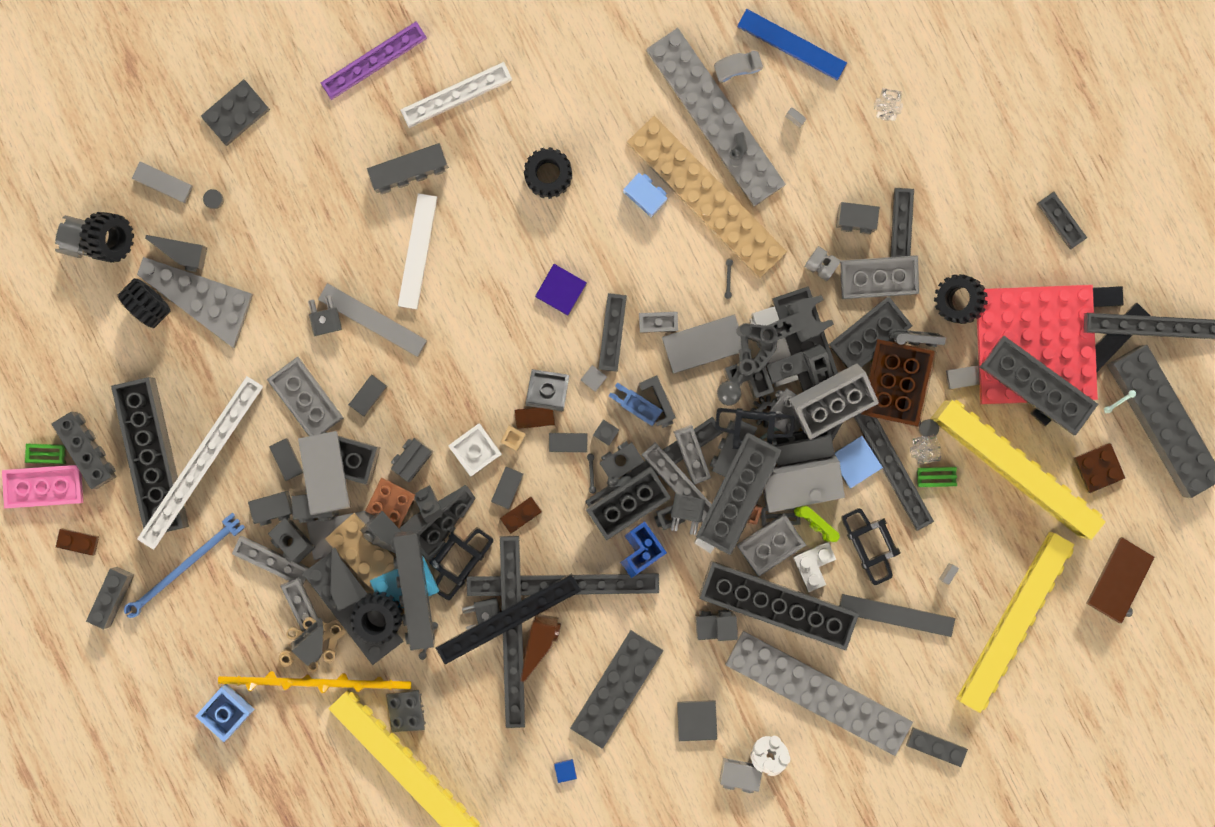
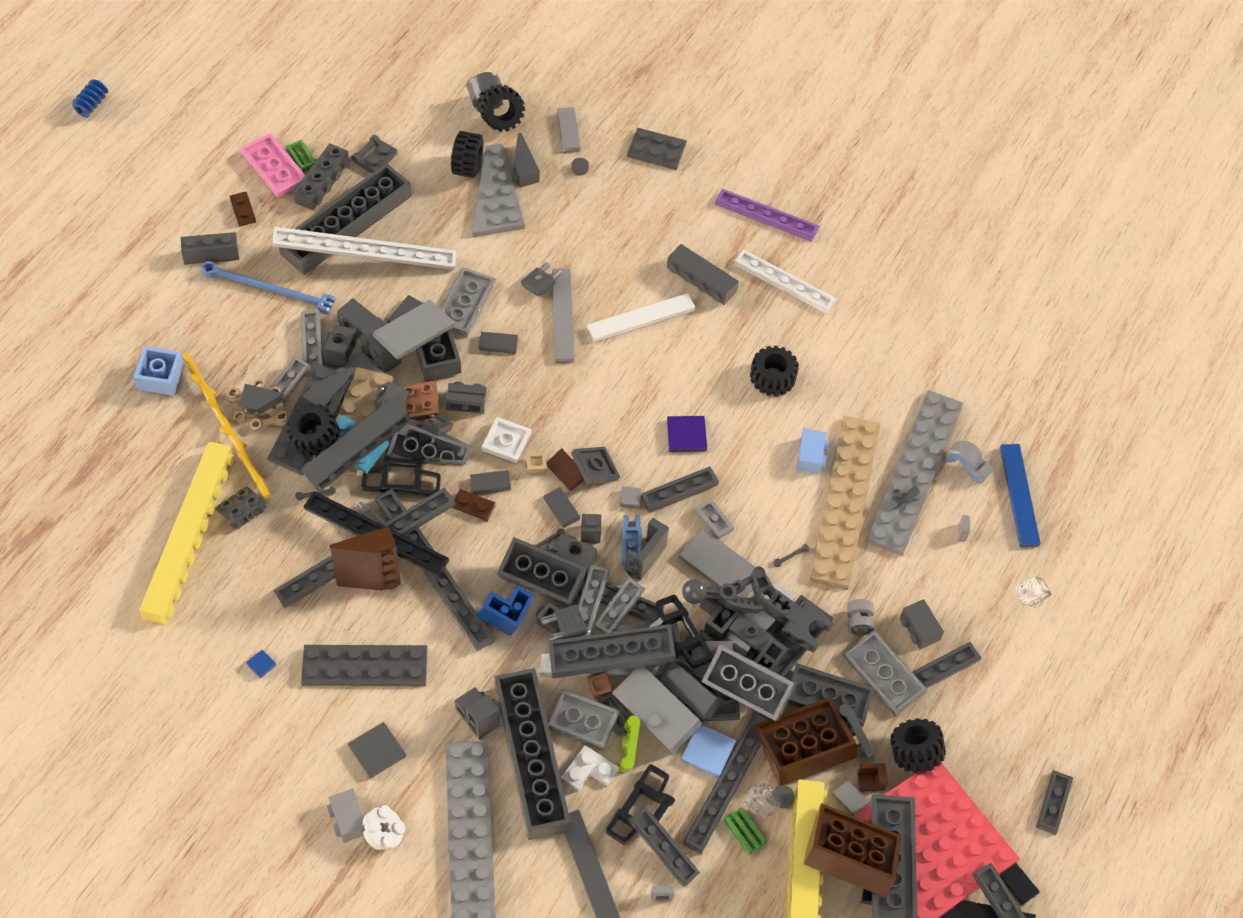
camera: 50 degrees right, 30 degrees down
(90, 382) = (381, 155): none -> dark grey plate
(916, 550) = (664, 846): none -> dark grey tile
(957, 349) = (872, 777): none -> reddish brown panel
(1021, 416) = (853, 850): none -> reddish brown slope

